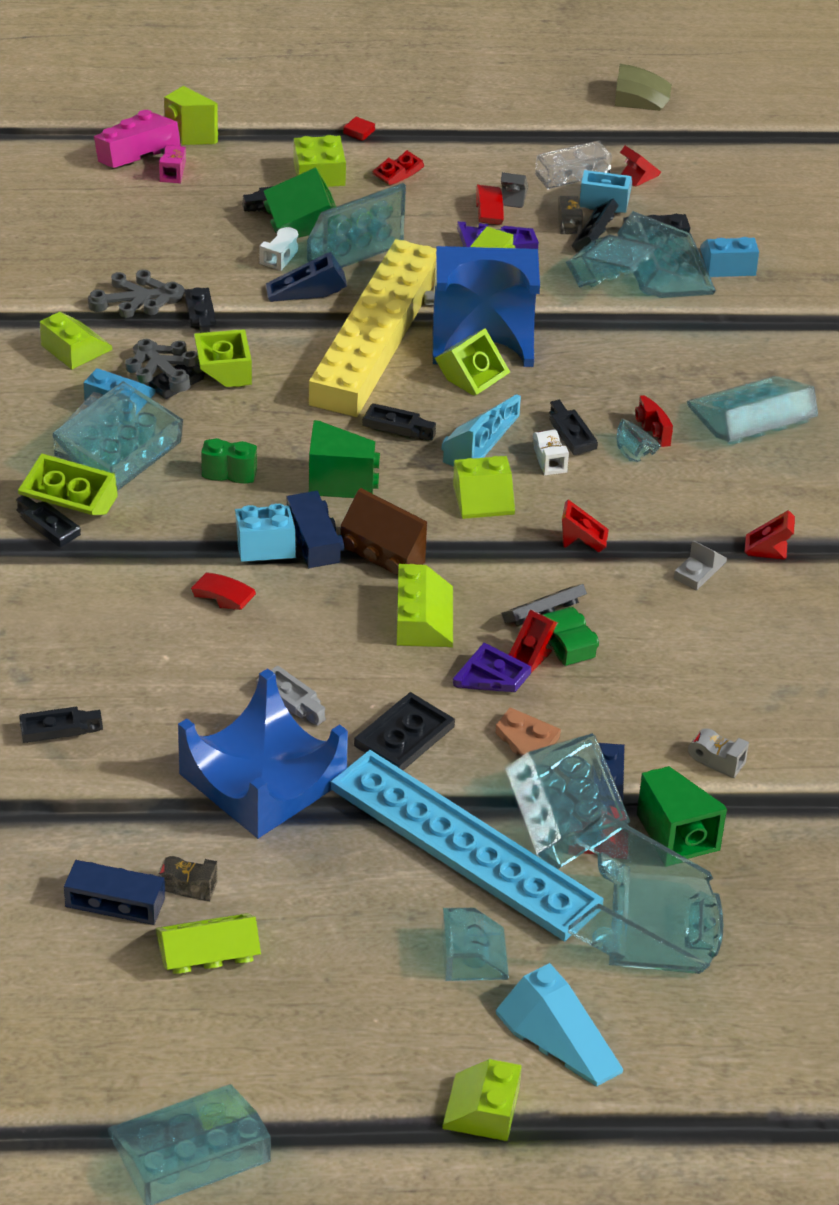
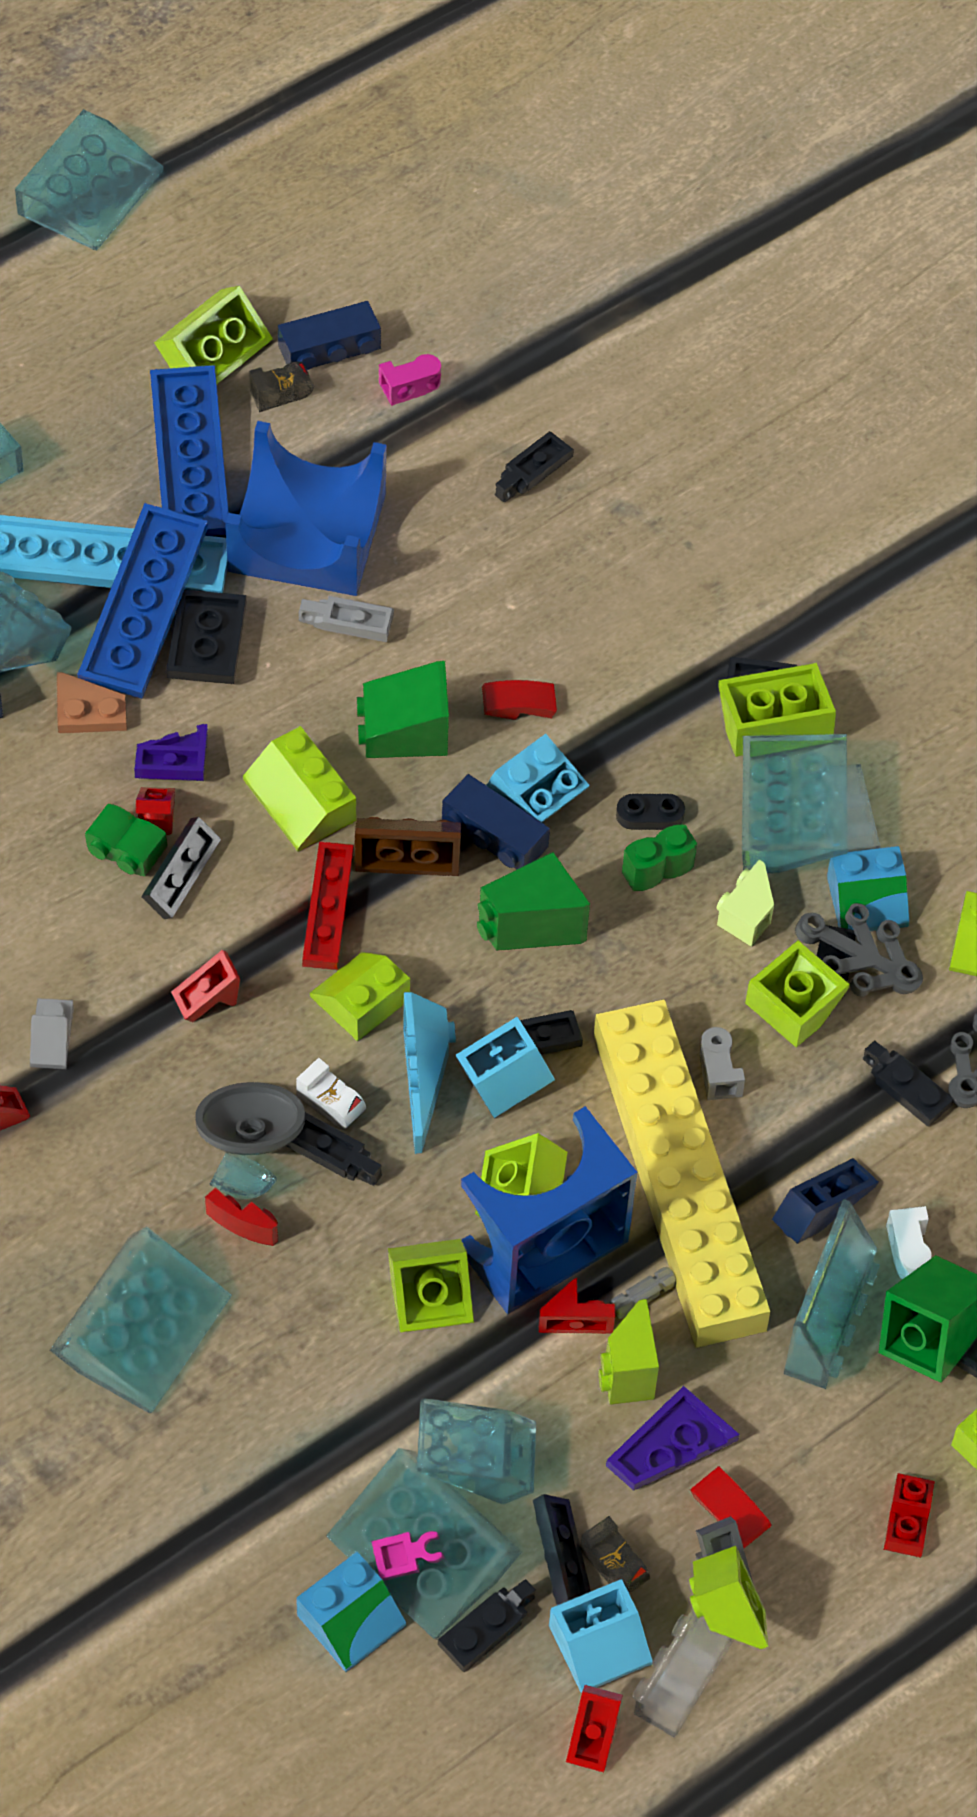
camera: 145 degrees right, 15 degrees up
(83, 829) = (410, 379): none -> dark pink leg
(201, 416) = (749, 906): none -> yellowish green slope
(203, 497) = (651, 812): none -> black plate
(302, 361) = (718, 1074): none -> light grey leg
(305, 859) = (190, 444): none -> blue plate
(312, 604) = (405, 713): none -> green slope
(434, 763) = (143, 600): none -> blue plate
(436, 400) = (505, 1067): none -> medium azure slope
(464, 541) = (328, 905): none -> red plate
(533, 156) = (728, 1598): none -> lime slope
(566, 347) = (431, 1285): none -> lime slope
(611, 437) = (250, 1118): none -> dark grey dish
(686, 245) = (399, 1554): none -> dark pink plate

